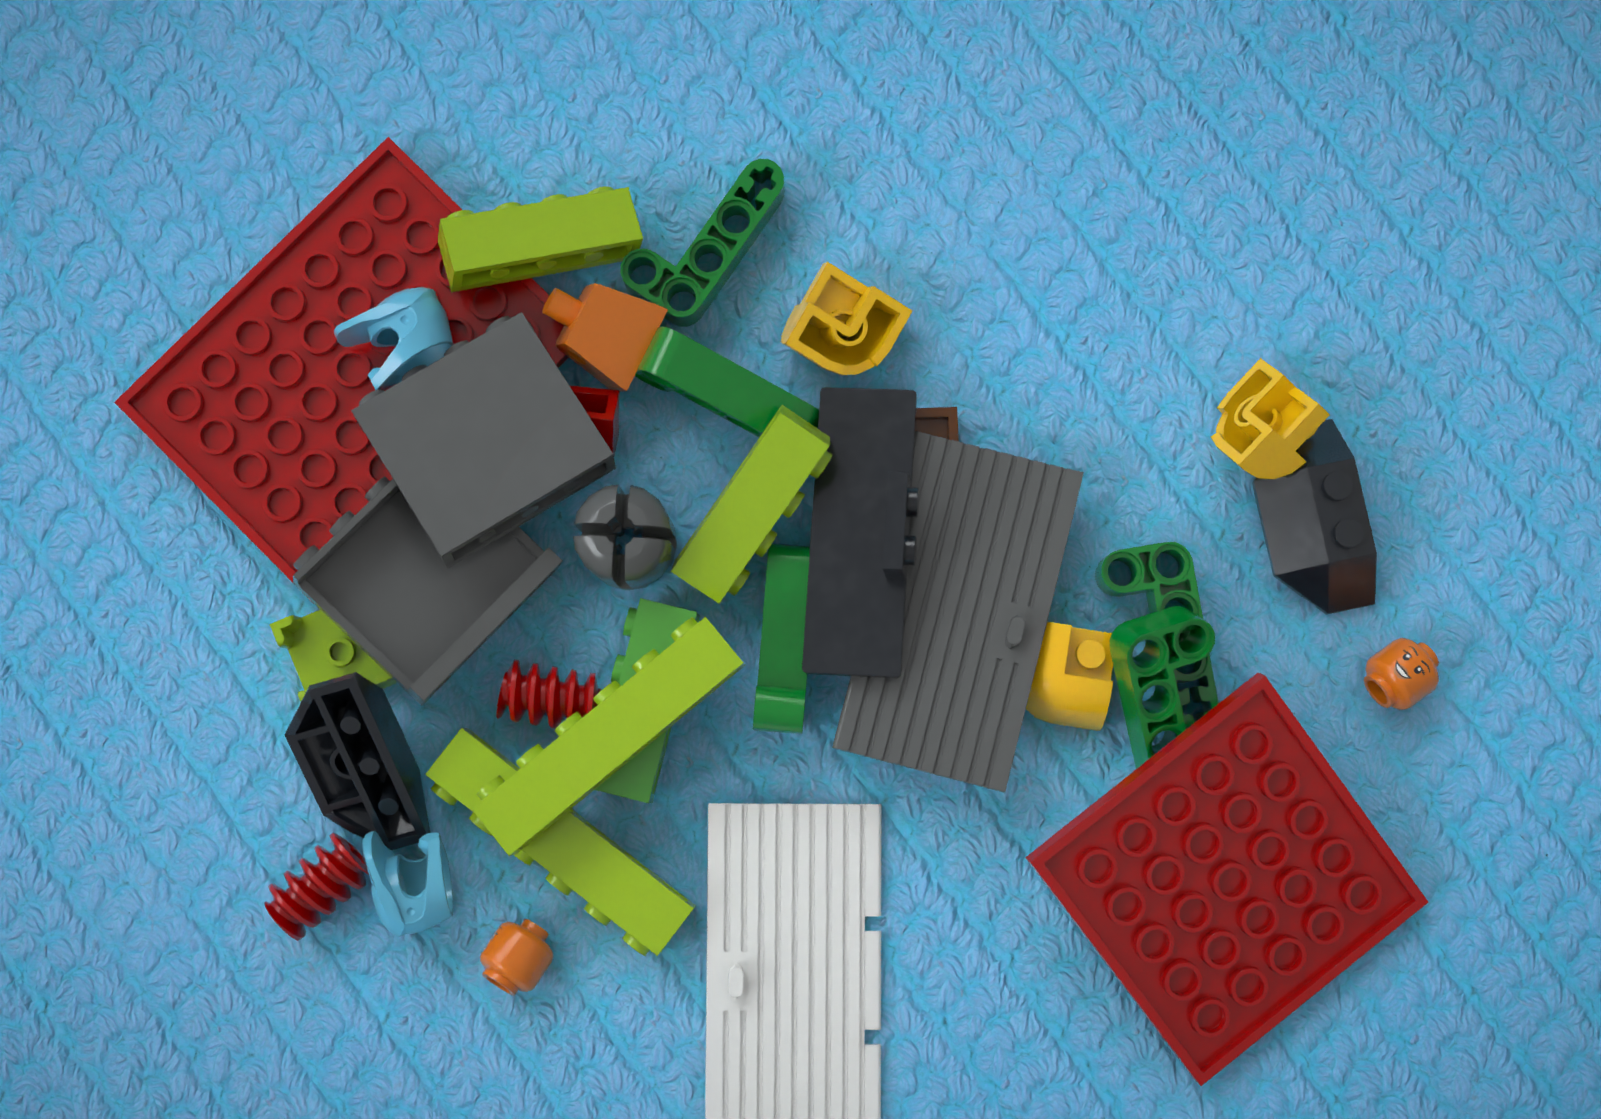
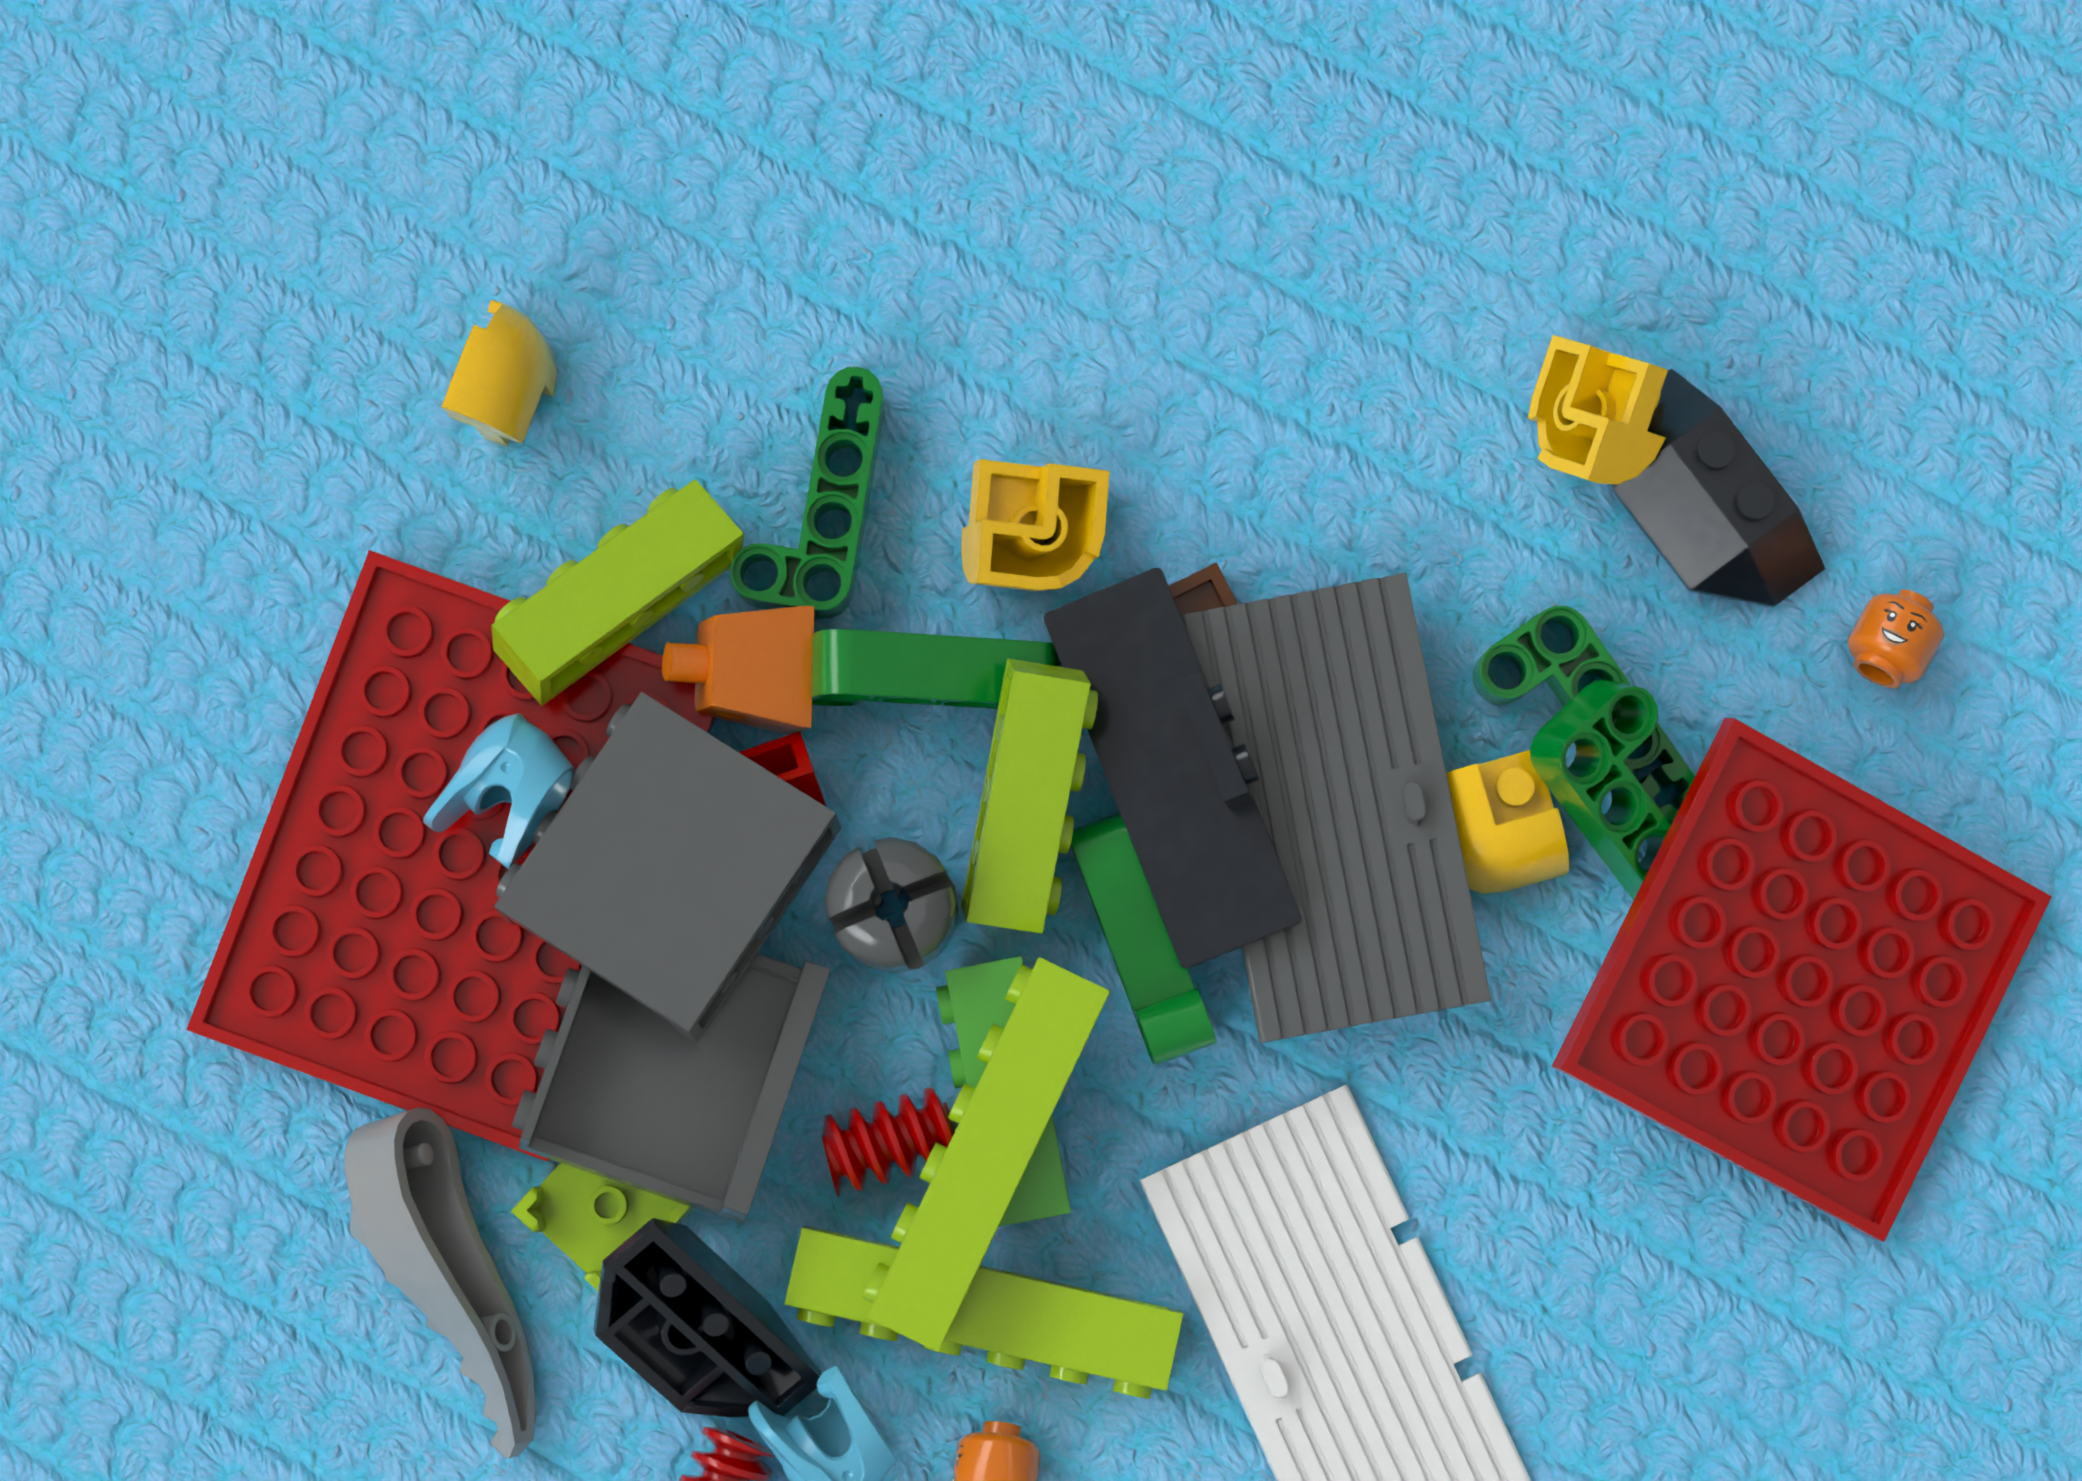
camera: 25 degrees left, 0 degrees up
(206, 615) = (425, 1239): none -> light grey animal
(530, 57) = (501, 376): none -> yellow brick

